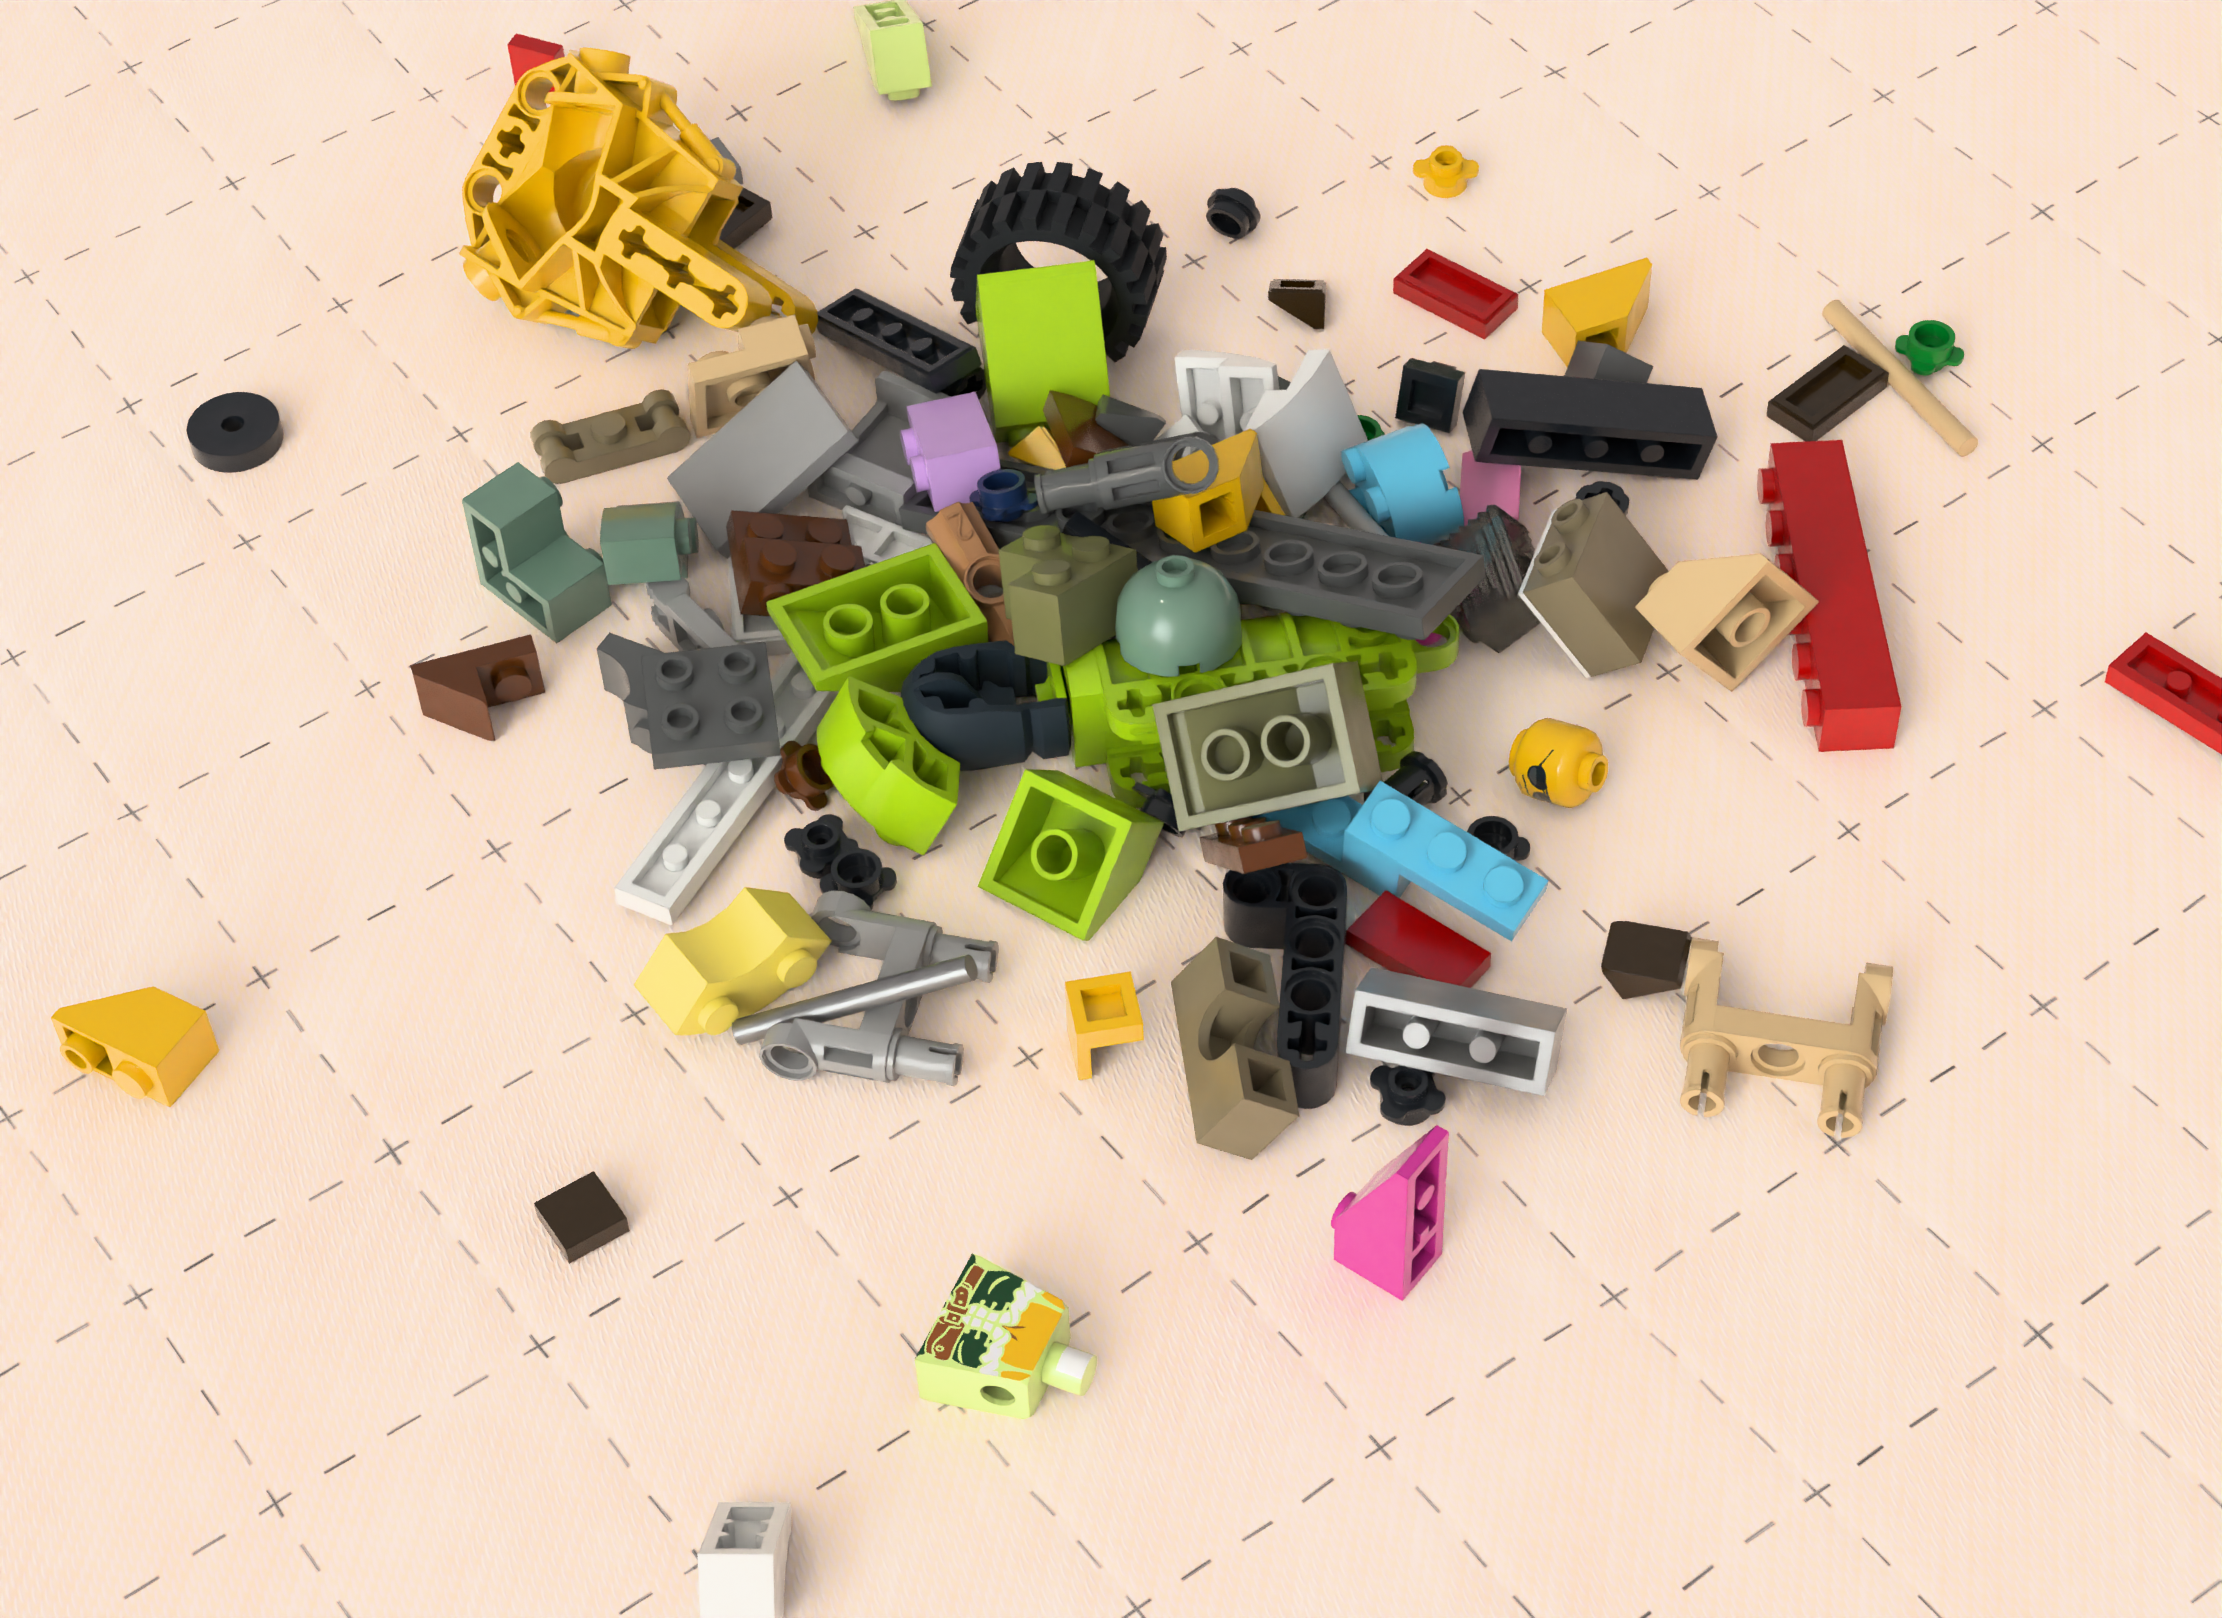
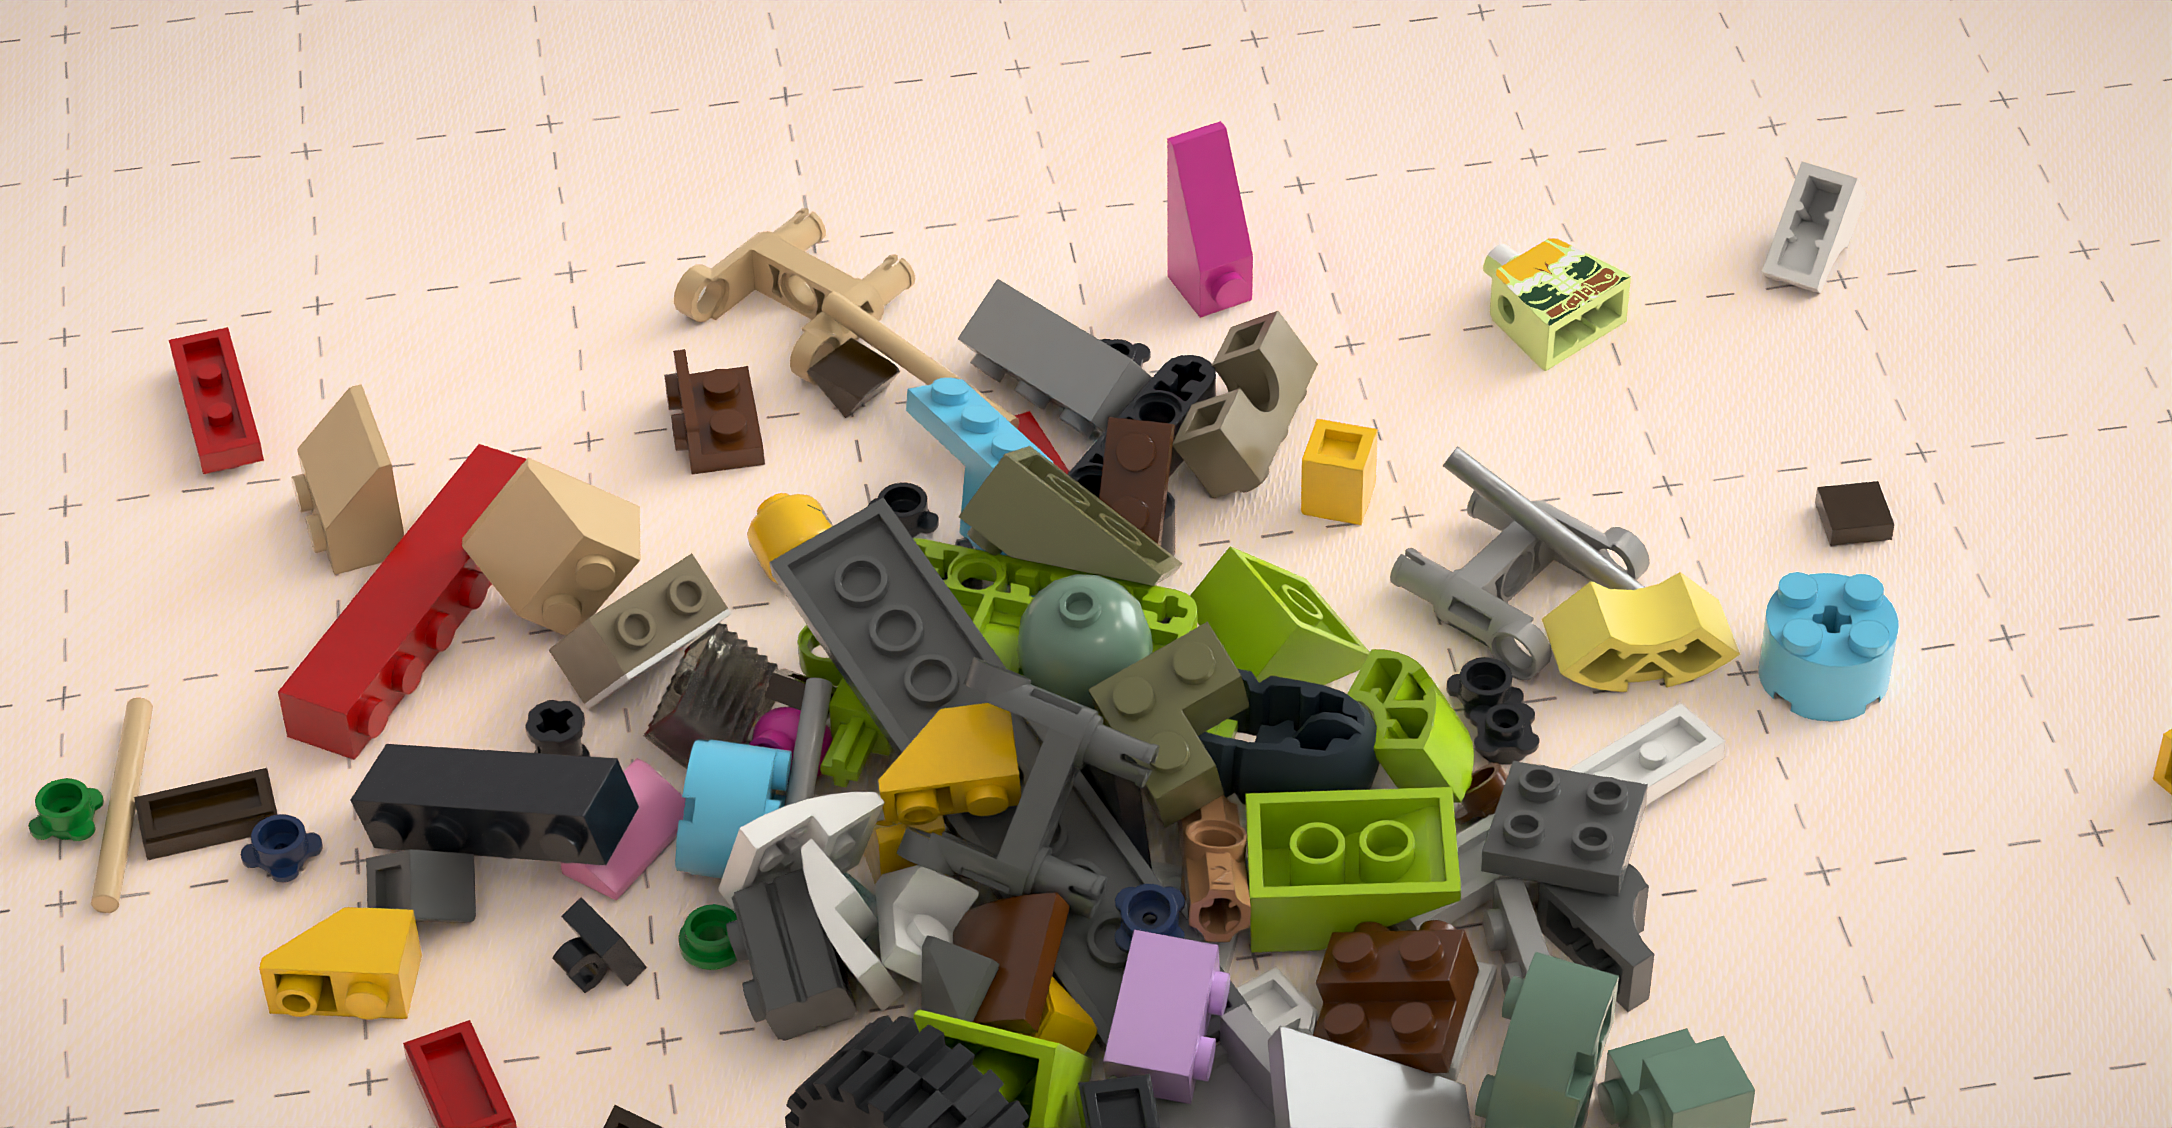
camera: 155 degrees left, 5 degrees down
(467, 683) = (1803, 1014): reddish brown slope -> none
(551, 1016) = (1828, 644): none -> medium azure brick
(1580, 961) = (893, 345): none -> tan bar
(1741, 383) = (280, 847): none -> dark blue plate
(1748, 875) = (716, 417): none -> reddish brown bracket
(1971, 646) = (348, 486): none -> tan slope

